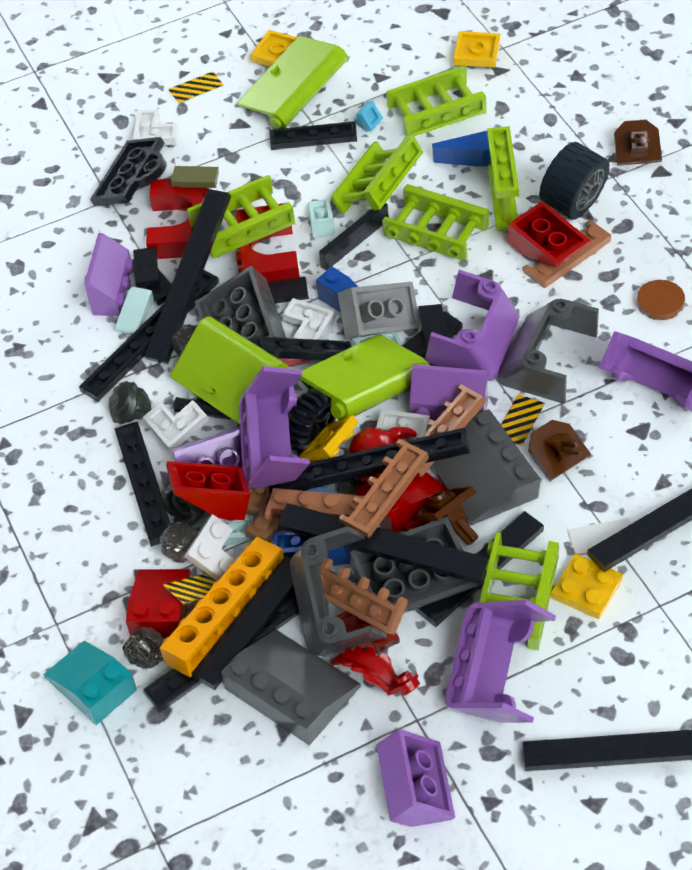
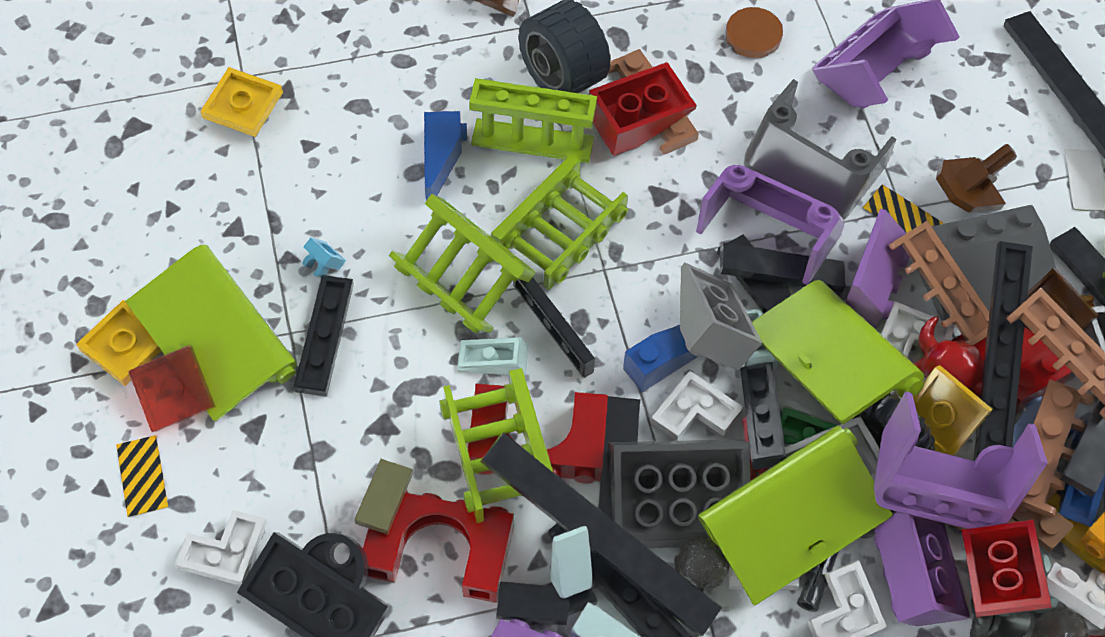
camera: 85 degrees left, 10 degrees up
(165, 264) = (571, 562): none -> light aqua slope
(248, 75) = (171, 388): none -> clear red tile
(441, 115) = (355, 179): lime fence -> none

